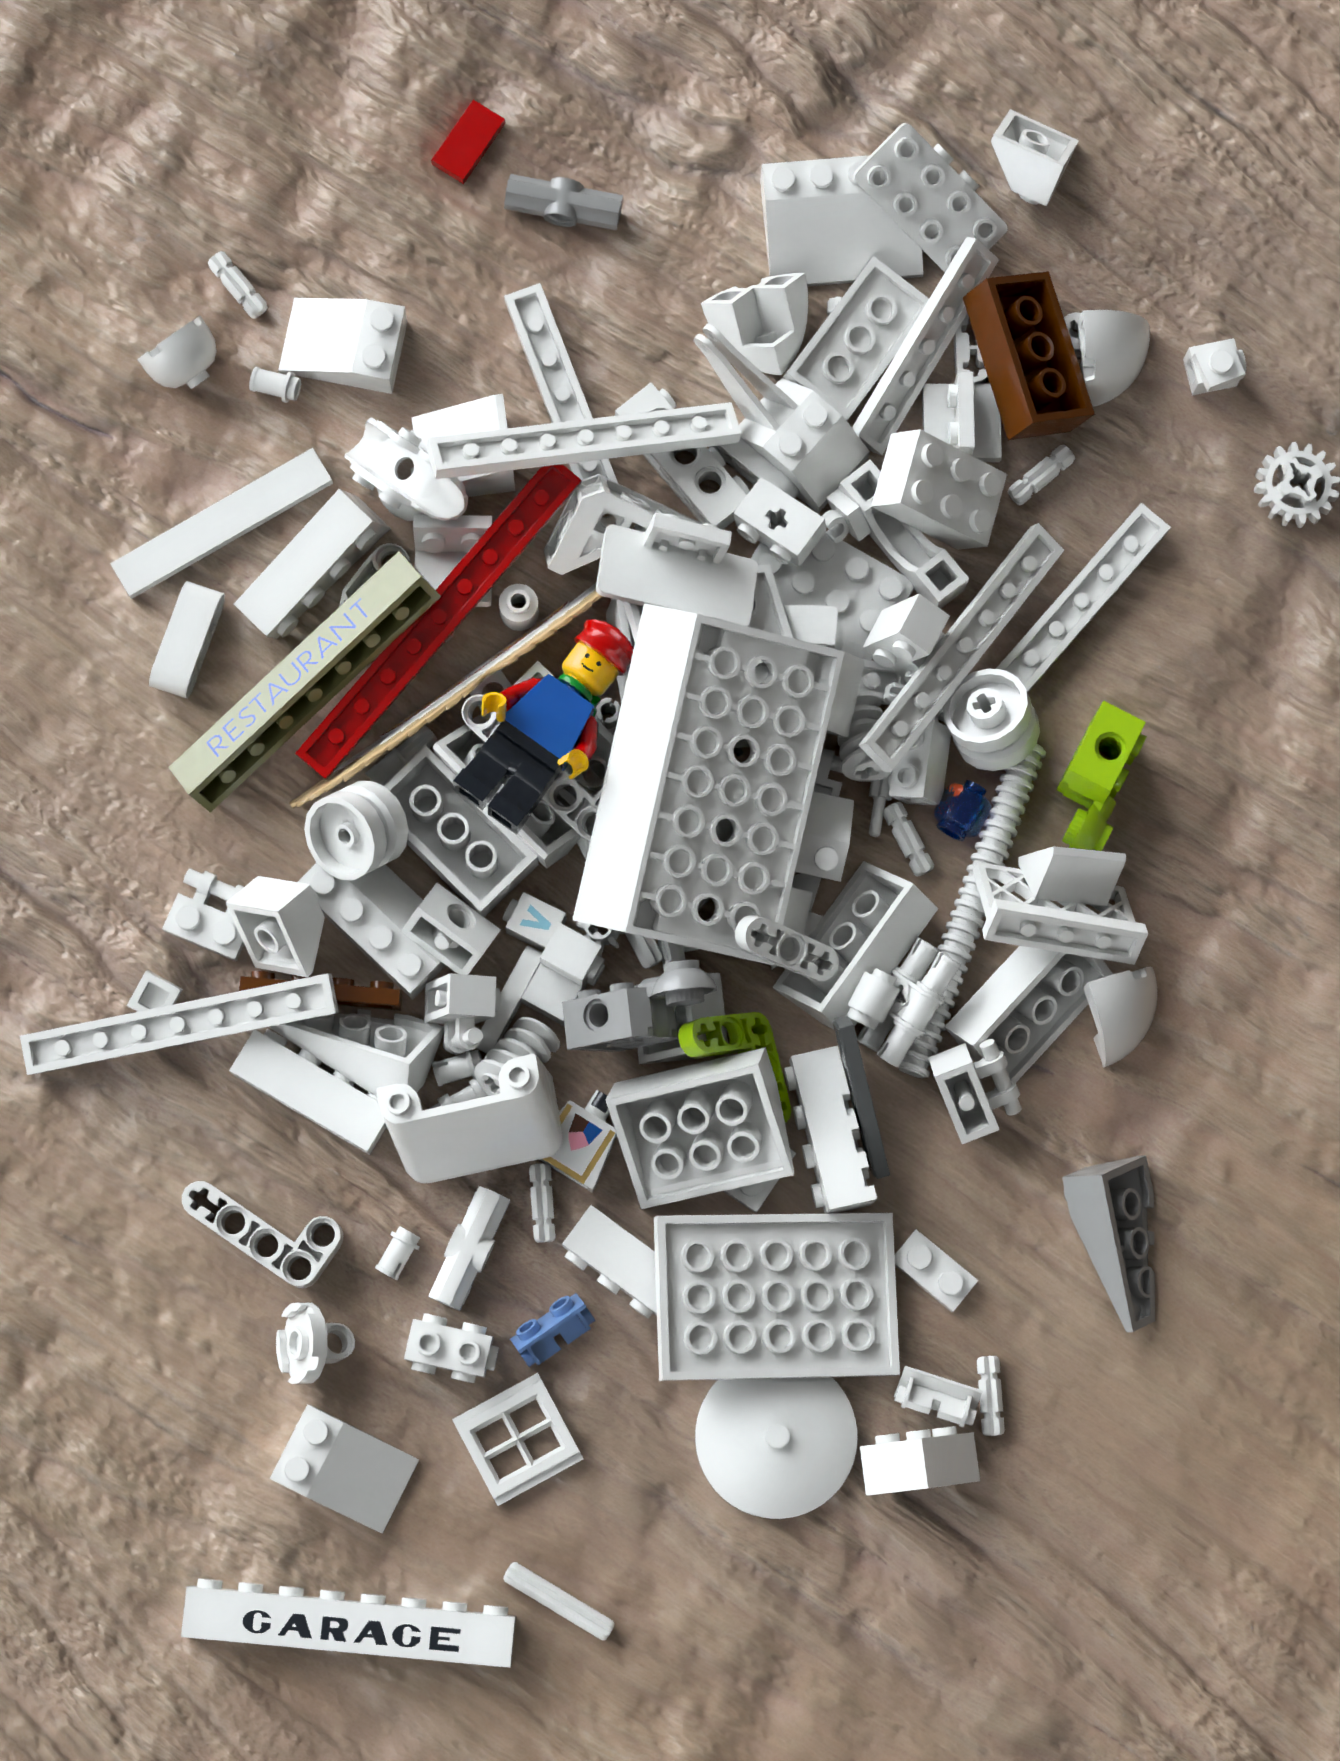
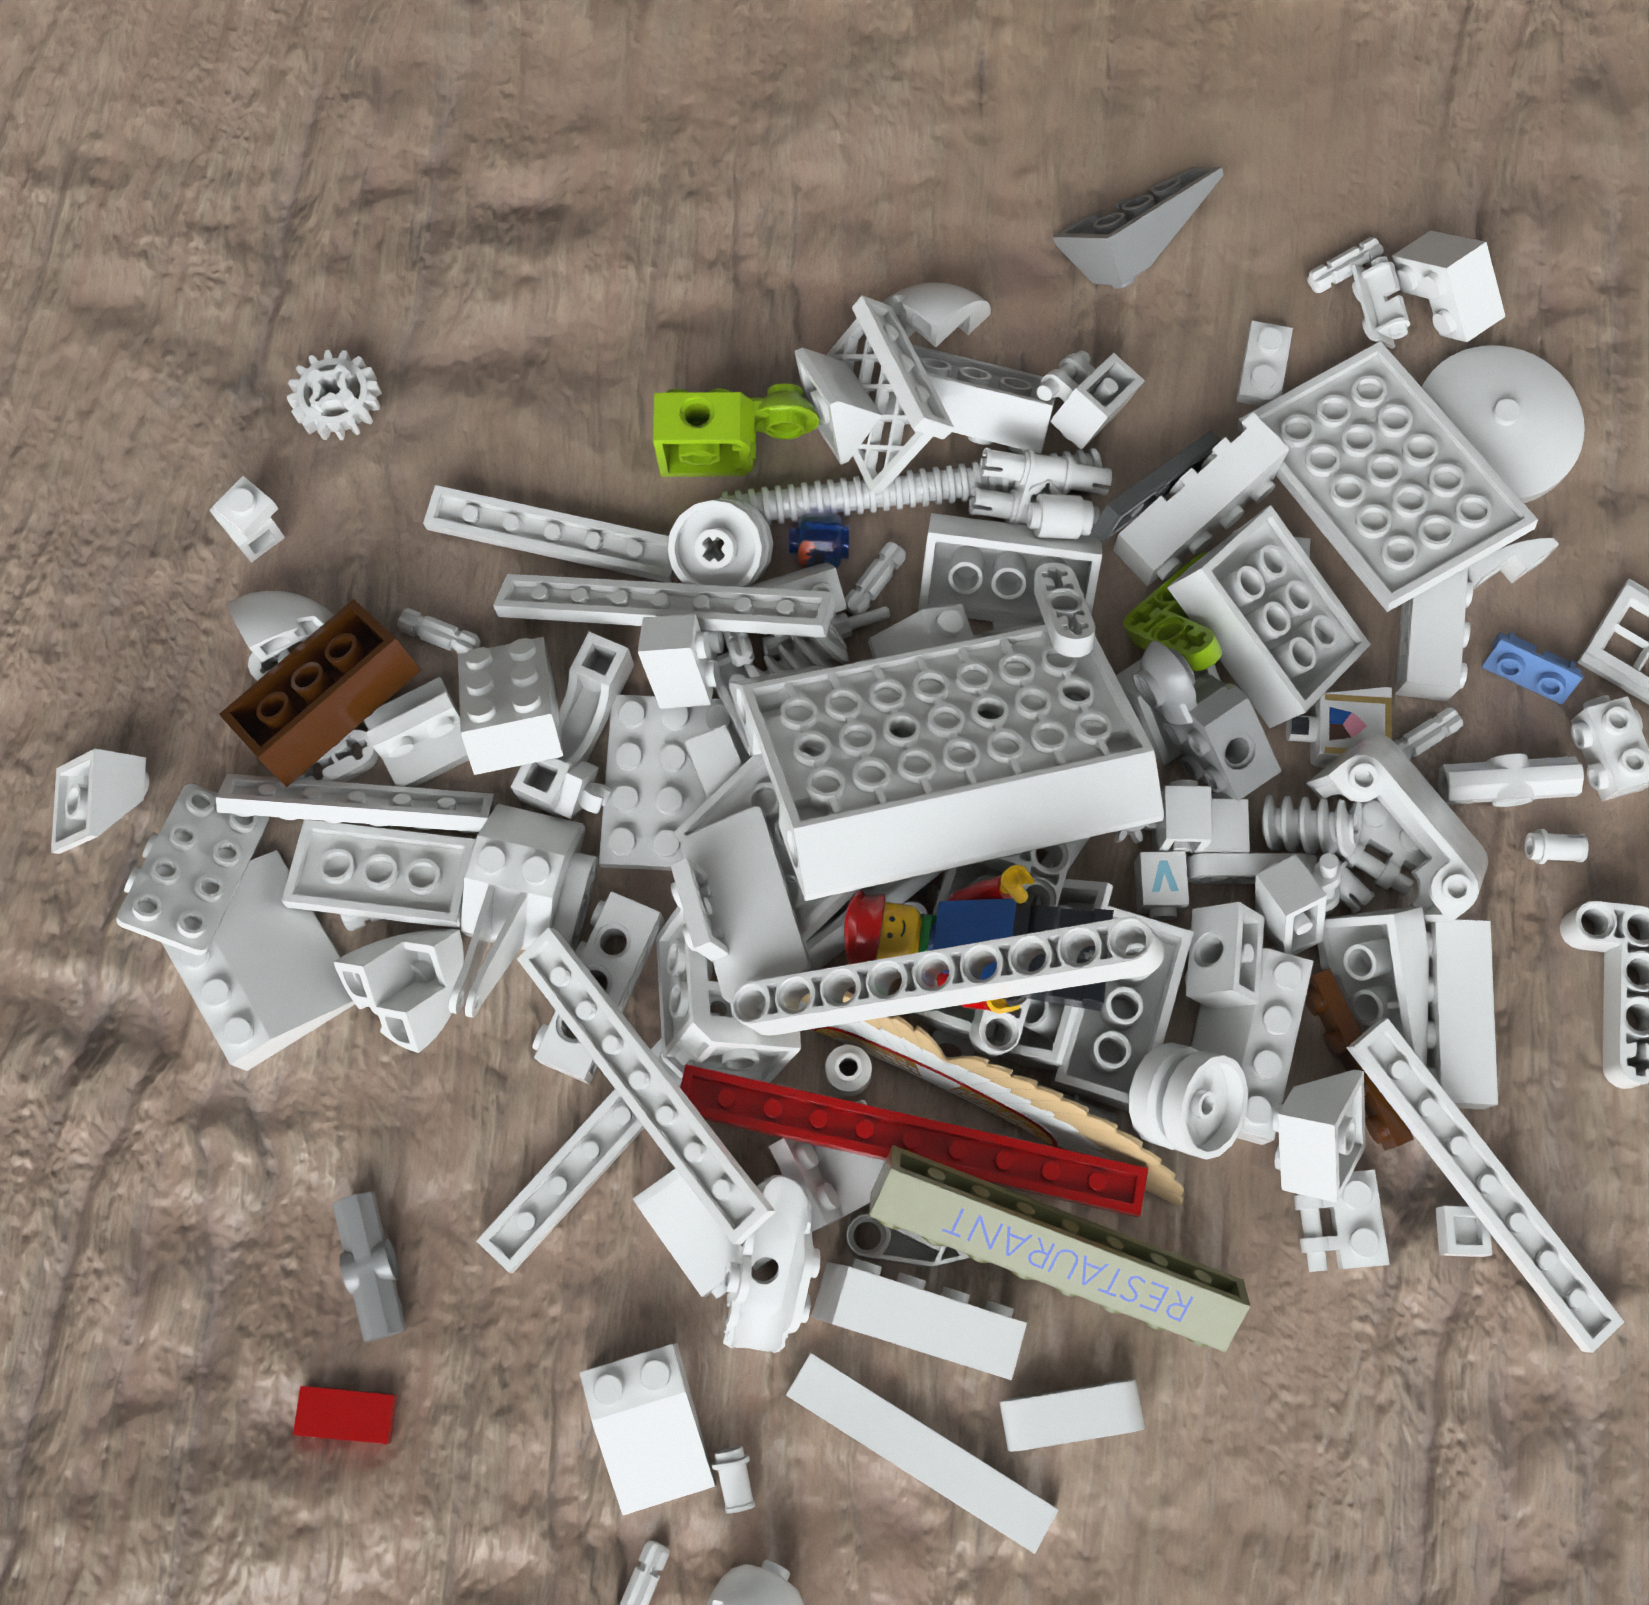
camera: 110 degrees left, 5 degrees down
(522, 678) = (964, 980): none -> white beam
(646, 1371) = (1512, 560): none -> white slope
(770, 504) = (614, 822): white brick -> none

